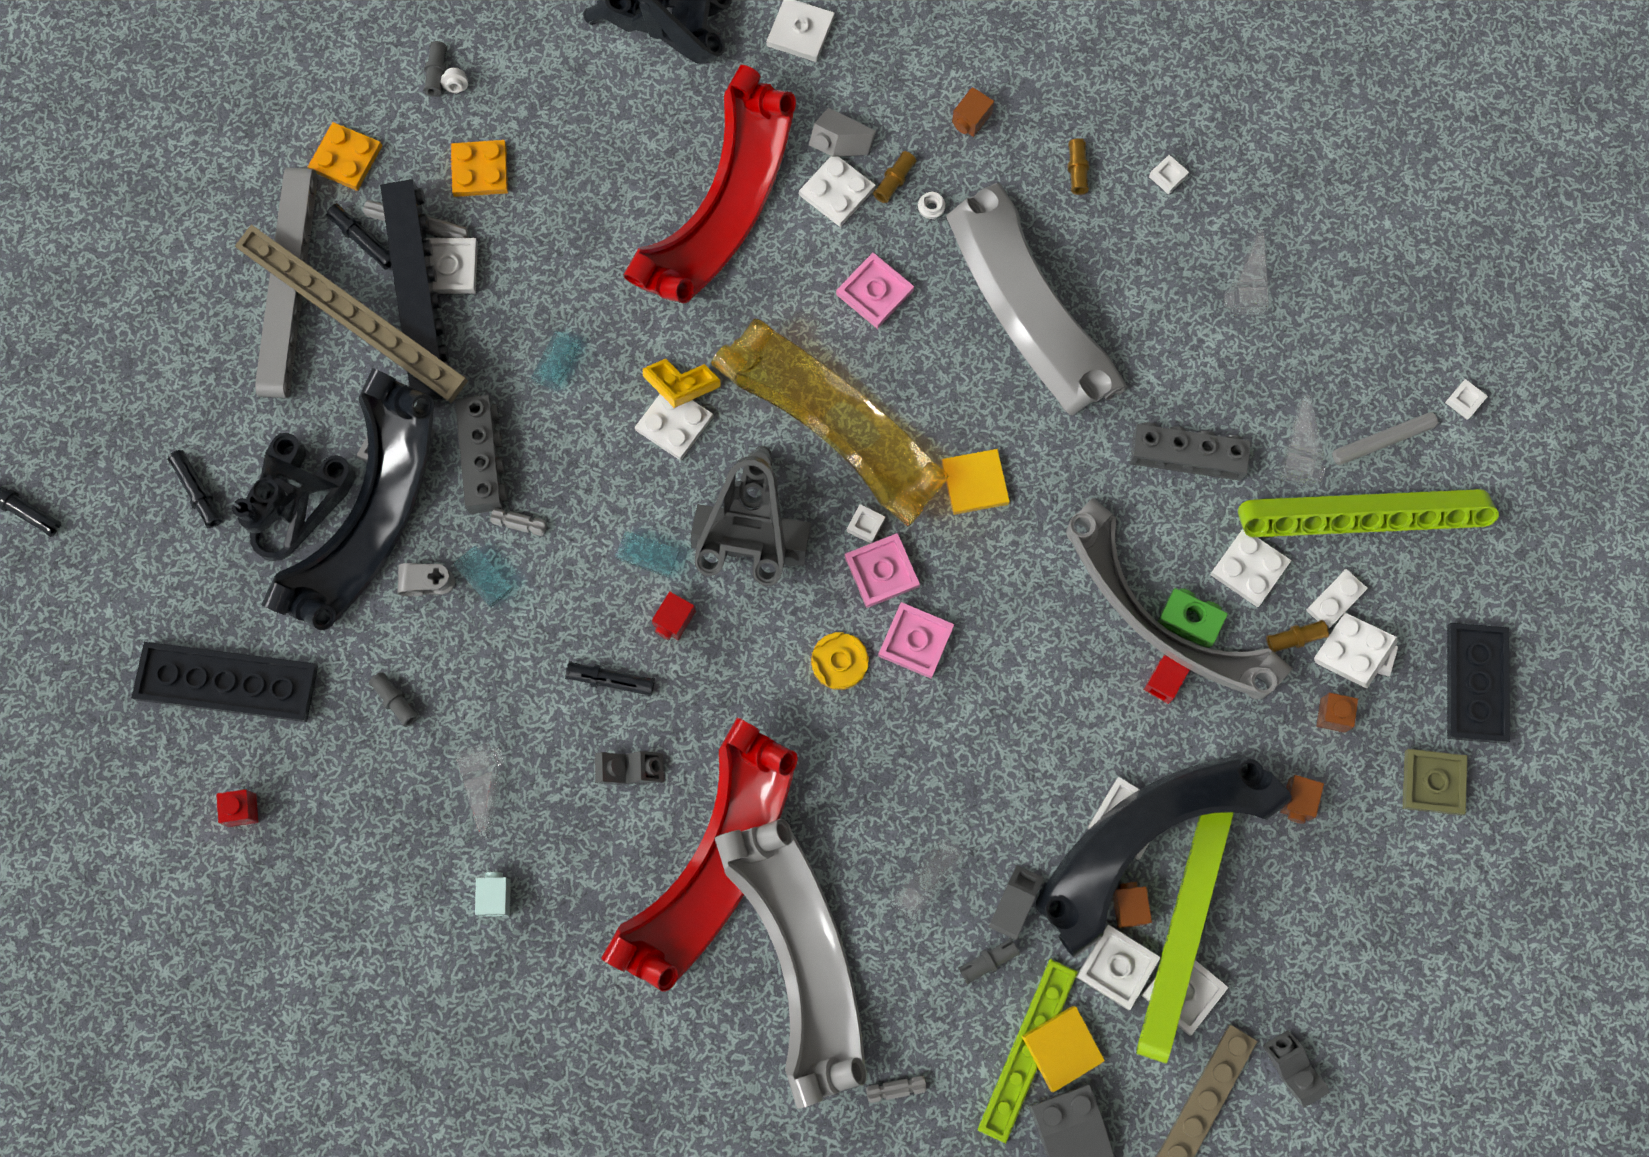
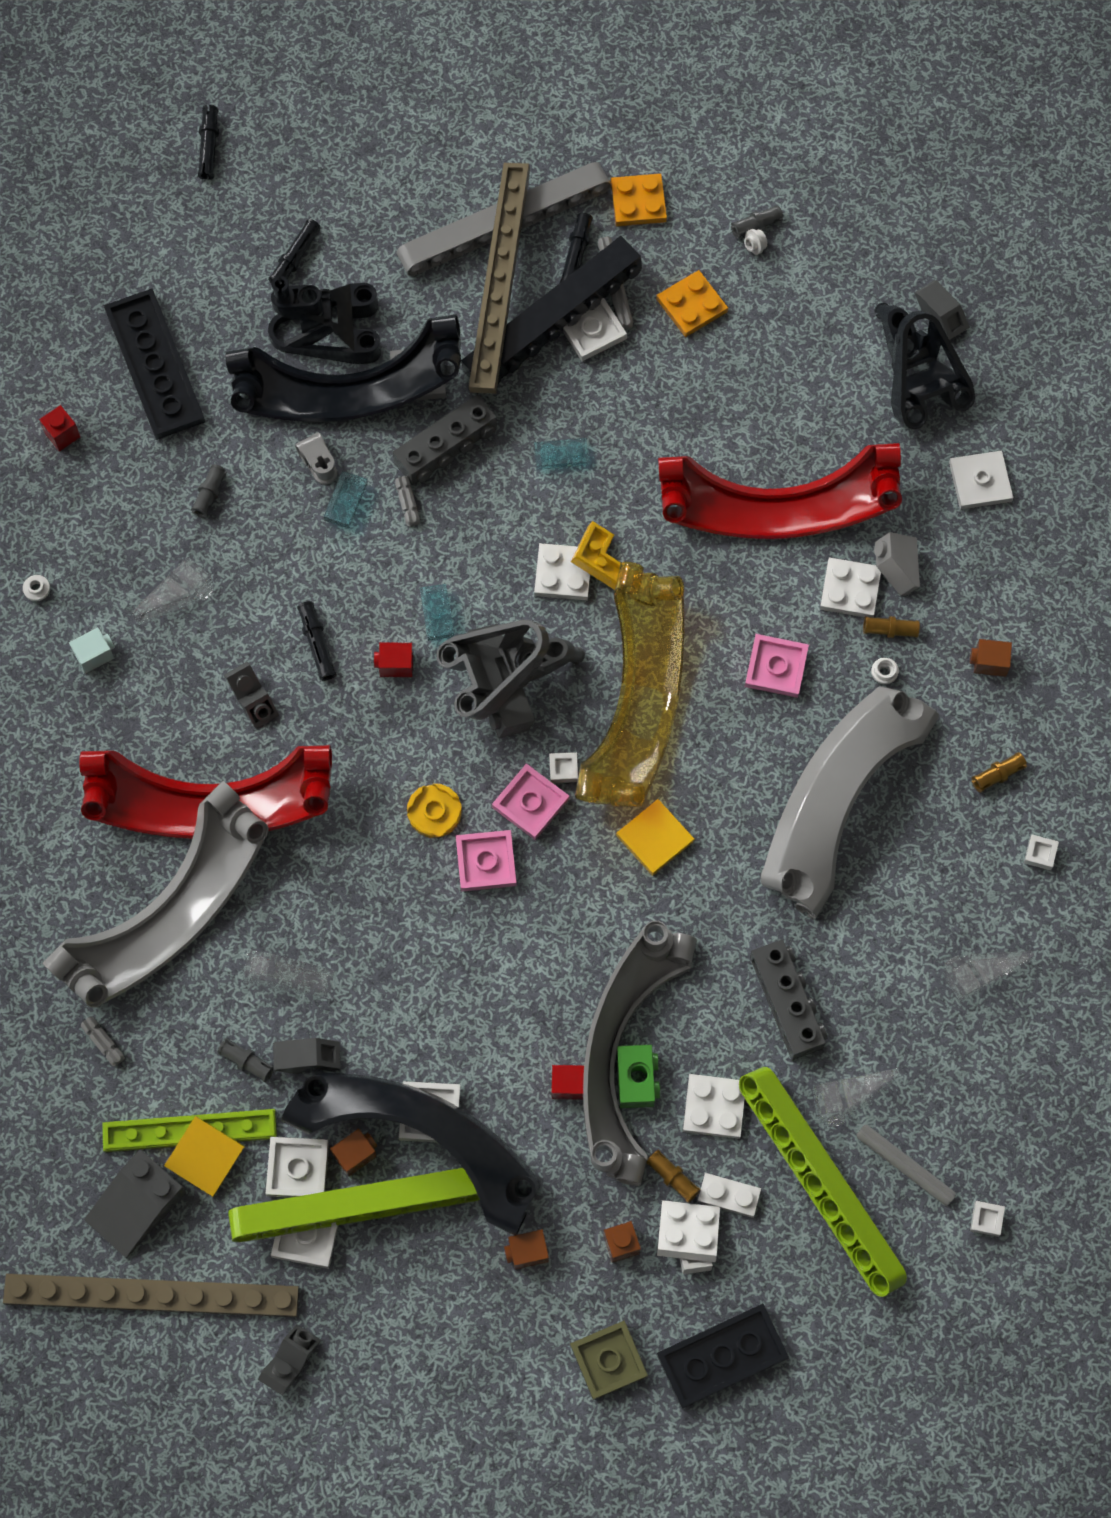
camera: 60 degrees right, 5 degrees down
(399, 924) = (41, 593): none -> white plate

